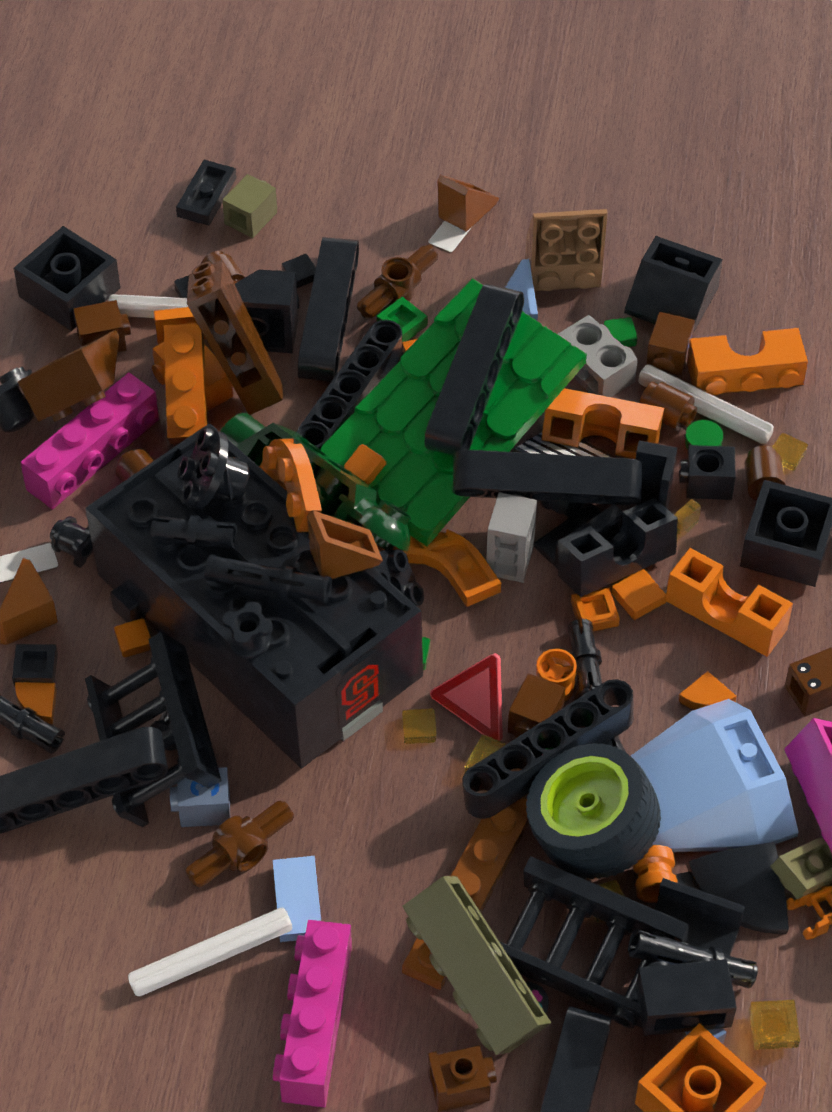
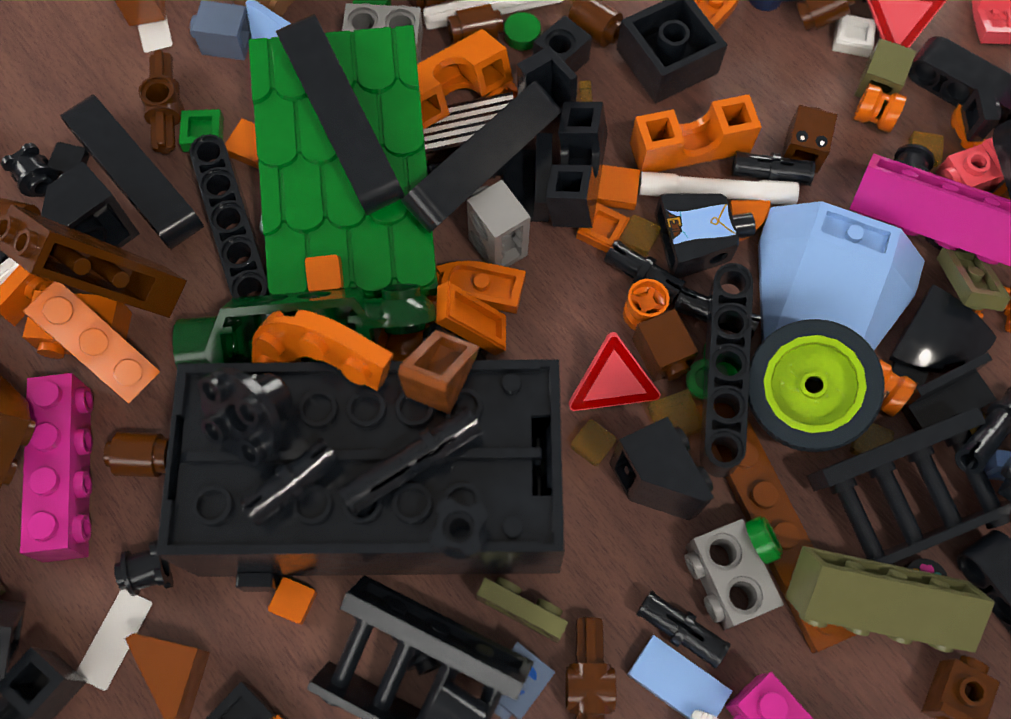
camera: 50 degrees left, 15 degrees up
(252, 749) = (539, 617): none -> olive plate
(269, 253) = (30, 170): none -> black brick
(338, 894) = (683, 629): none -> black pin
(409, 873) = (743, 571): none -> light grey brick
(426, 575) = (470, 318): none -> orange tile
(431, 762) = (660, 472): none -> black slope
(444, 860) = (764, 539): none -> green tile
(489, 262) = (221, 30): none -> sand blue brick
(615, 637) = (640, 235): none -> clear yellow piece
(655, 666) = (699, 231): none -> black torso
(679, 626) = (768, 190): none -> white piece
(766, 678) = (773, 167): none -> black pin

